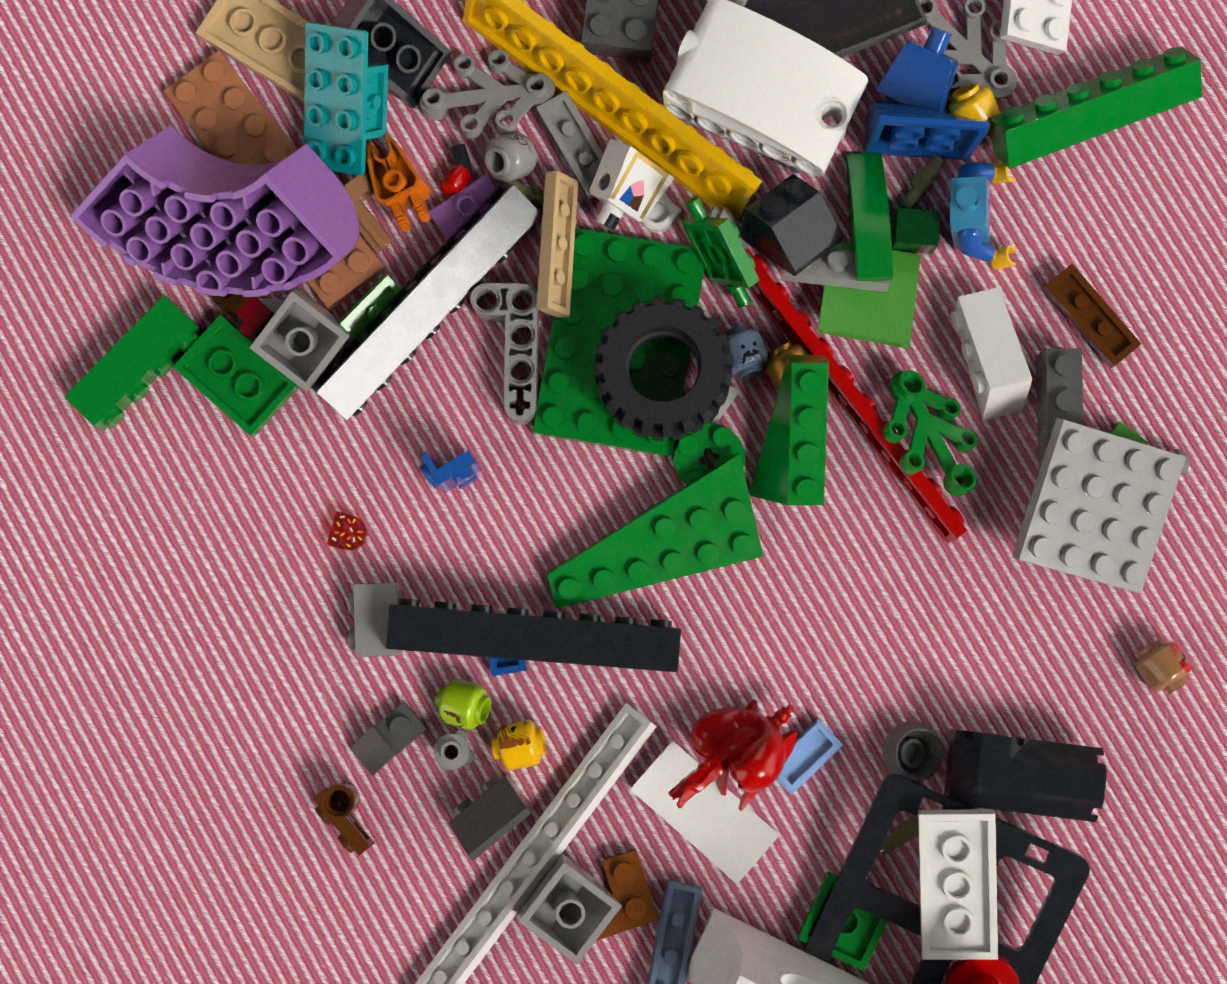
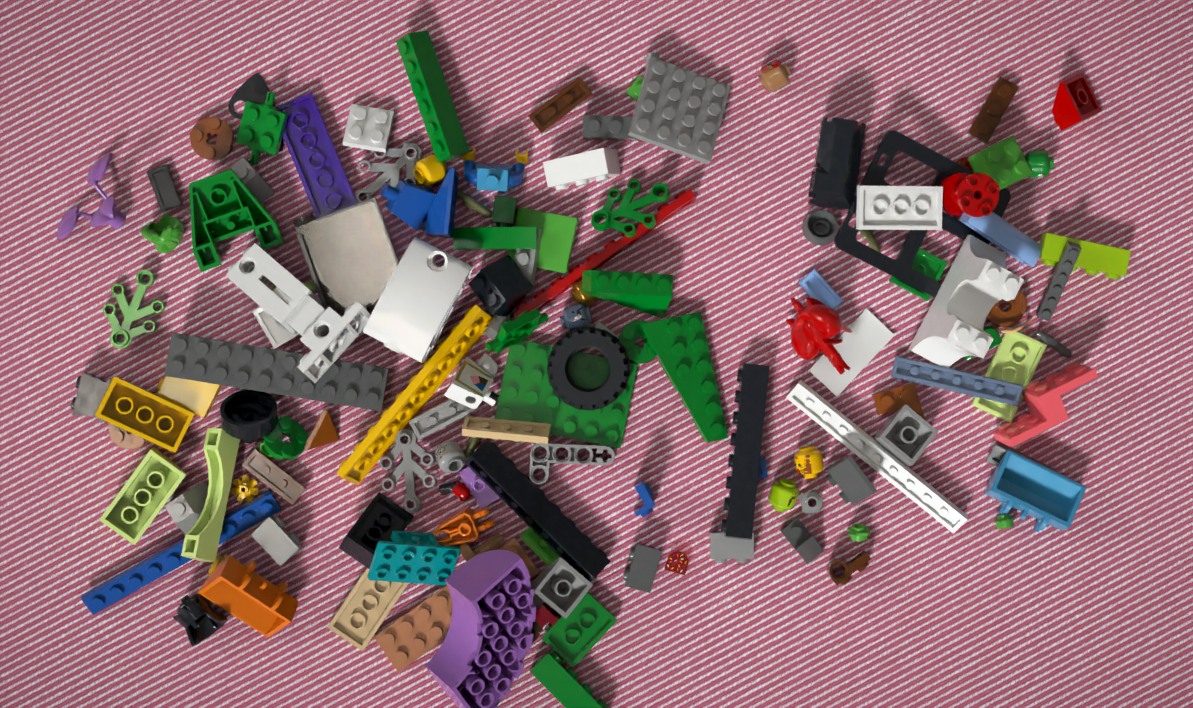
camera: 90 degrees left, 5 degrees up
(338, 474) = (642, 567): none -> dark grey piece
(403, 833) = (858, 532): none -> bright green plate

